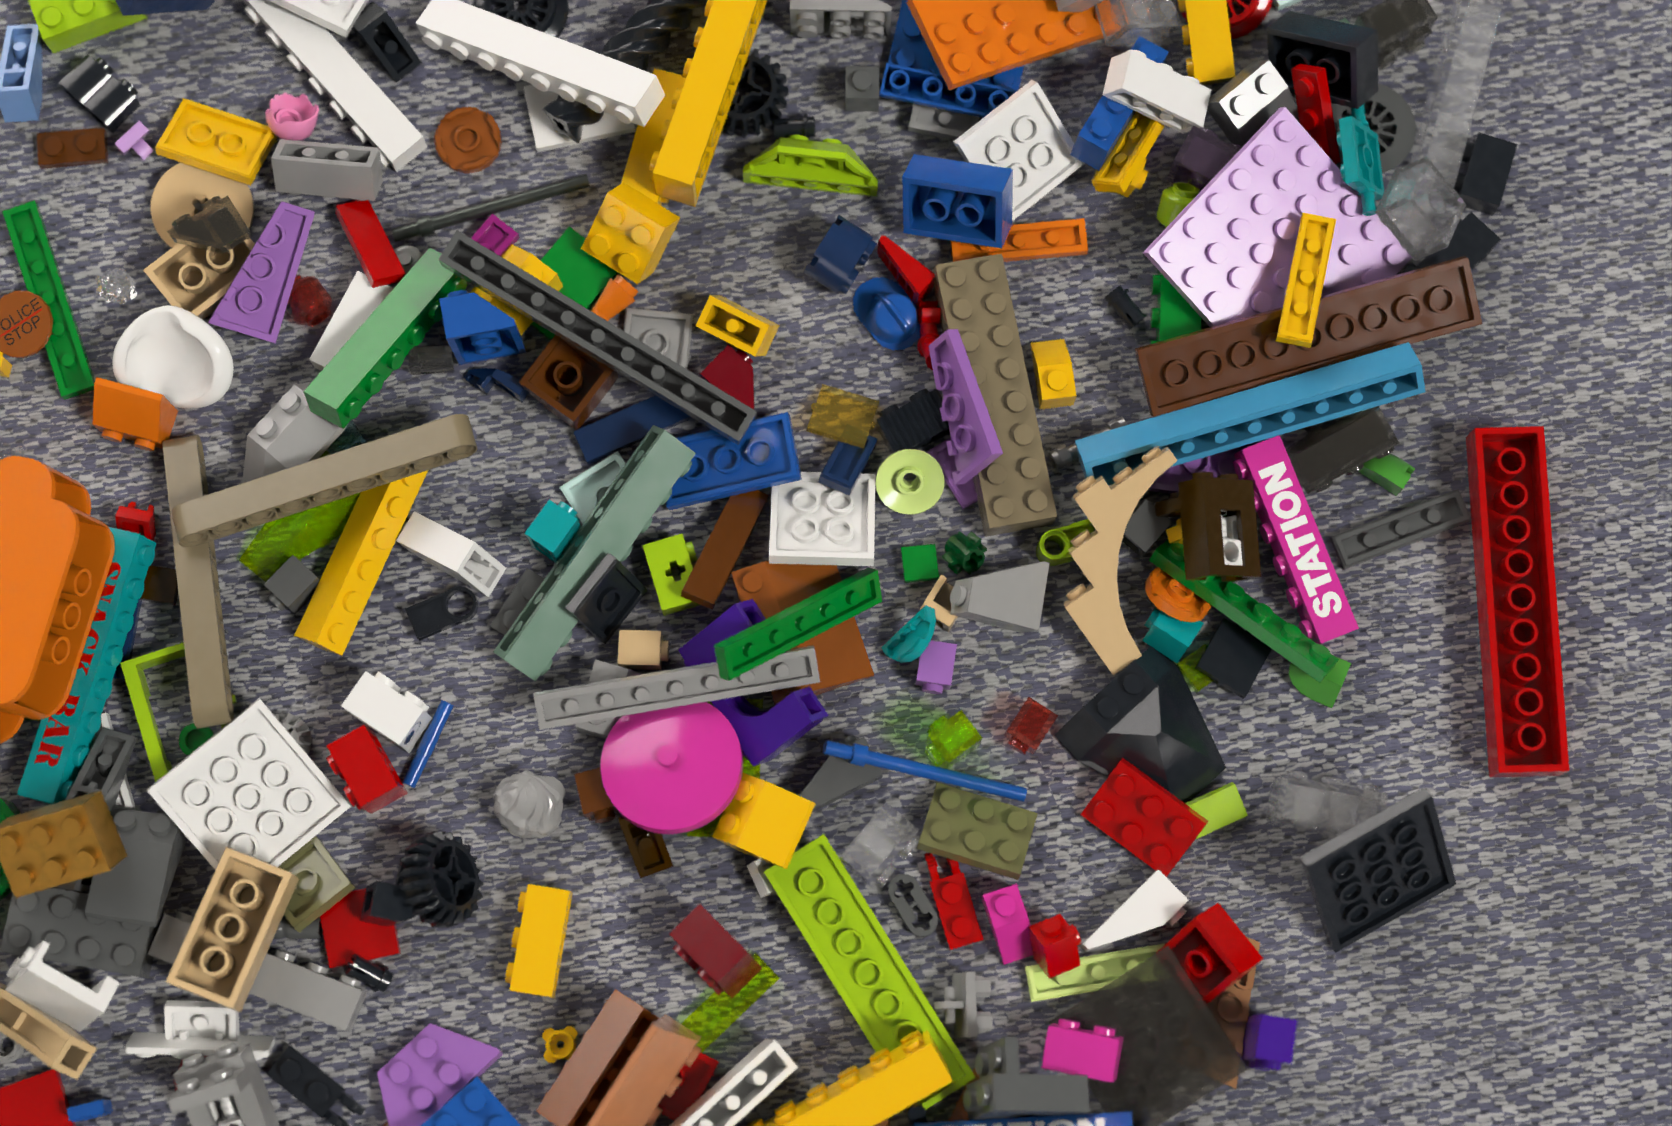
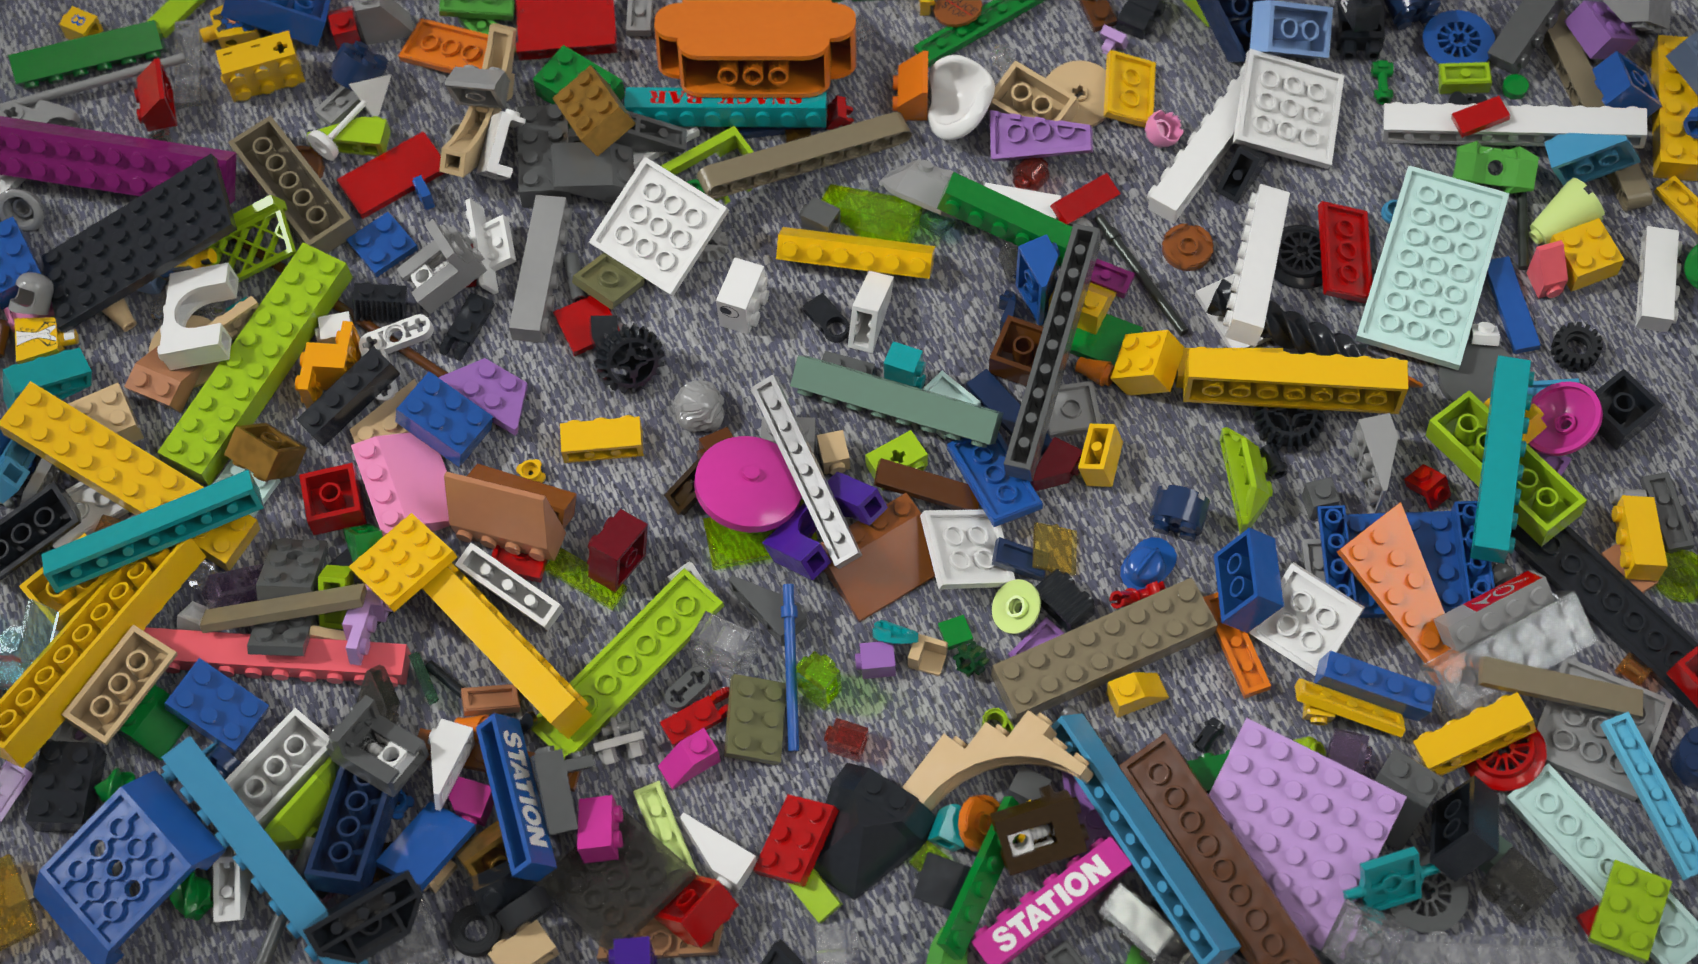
camera: 80 degrees right, 15 degrees down
(213, 229) = (1058, 92): clear smoke slope -> none
(232, 929) = (561, 234): tan brick -> none
(323, 480) = (896, 208): dark tan beam -> none
(327, 169) = (1130, 159): light grey brick -> none
(367, 770) = (695, 293): red brick -> none
(369, 973) = (554, 336): black pin -> none
(427, 743) = (729, 334): blue piece -> none
(606, 598) = (864, 415): black tile -> none
(764, 821) = (722, 556): yellow slope -> none
(797, 624) = (876, 541): green plate -> none
(909, 272) = (1183, 565): red slope -> none
(970, 426) = (1081, 618): medium lavender wing -> none
(1003, 597) = (942, 691): light grey slope -> none
(1055, 945) = (678, 793): red brick -> none
(1157, 91) = (1389, 702): white brick -> none
(1306, 280) = (1265, 849): yellow tile -> none
(1315, 107) = (1418, 835): red plate -> none

